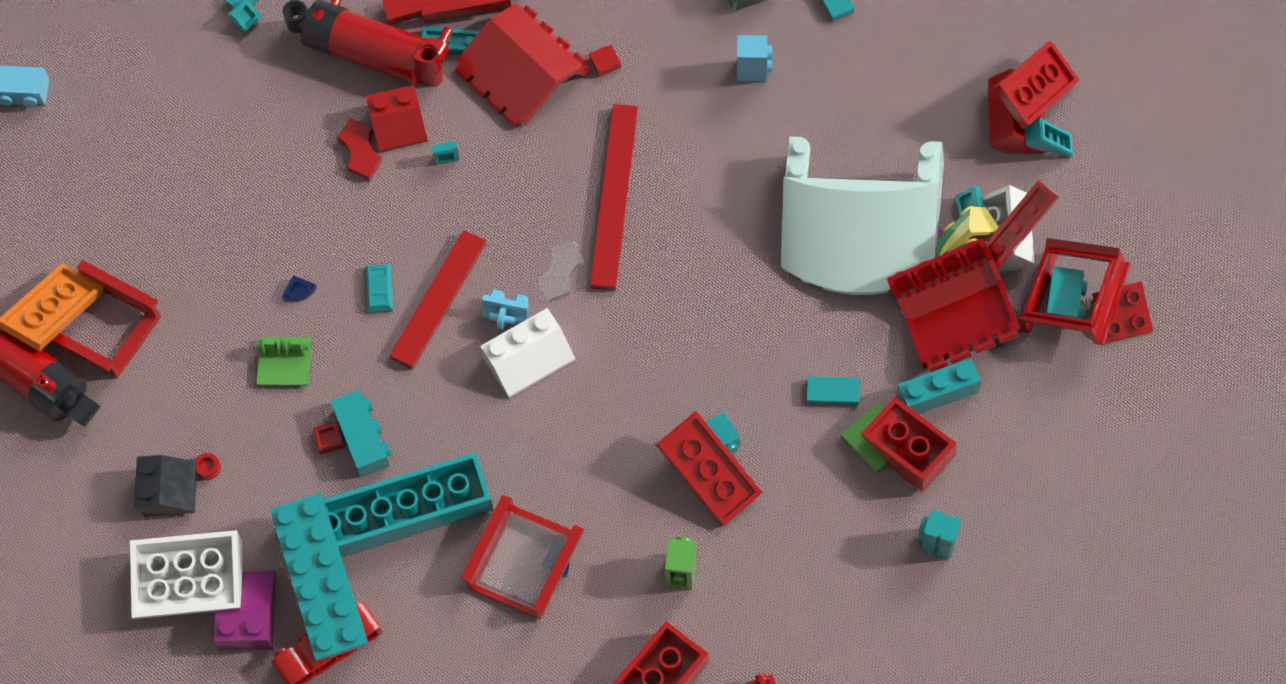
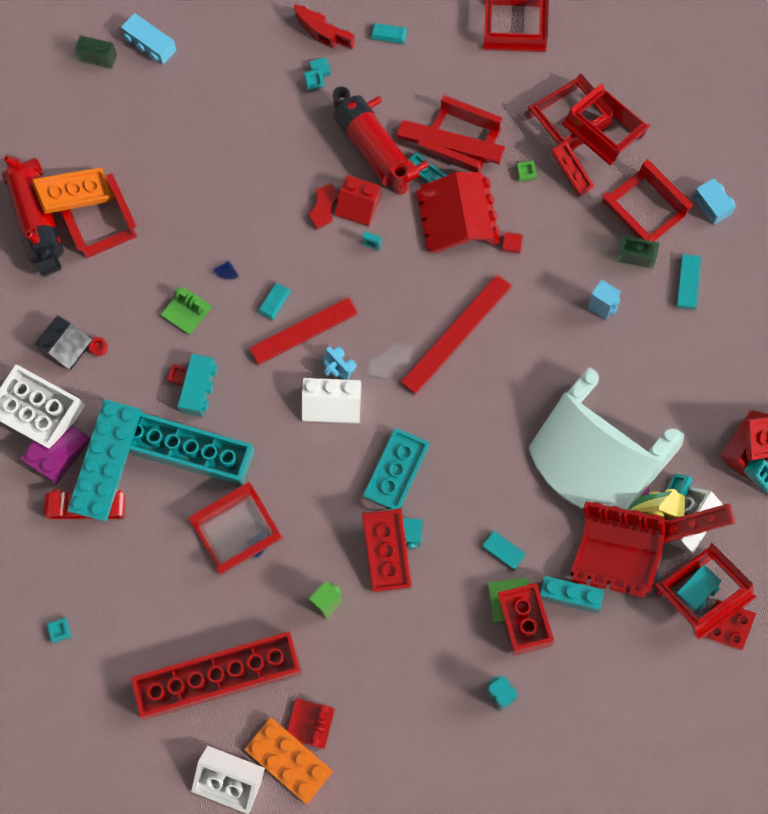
camera: 35 degrees right, 5 degrees up
(654, 380) = (396, 470): none -> teal plate

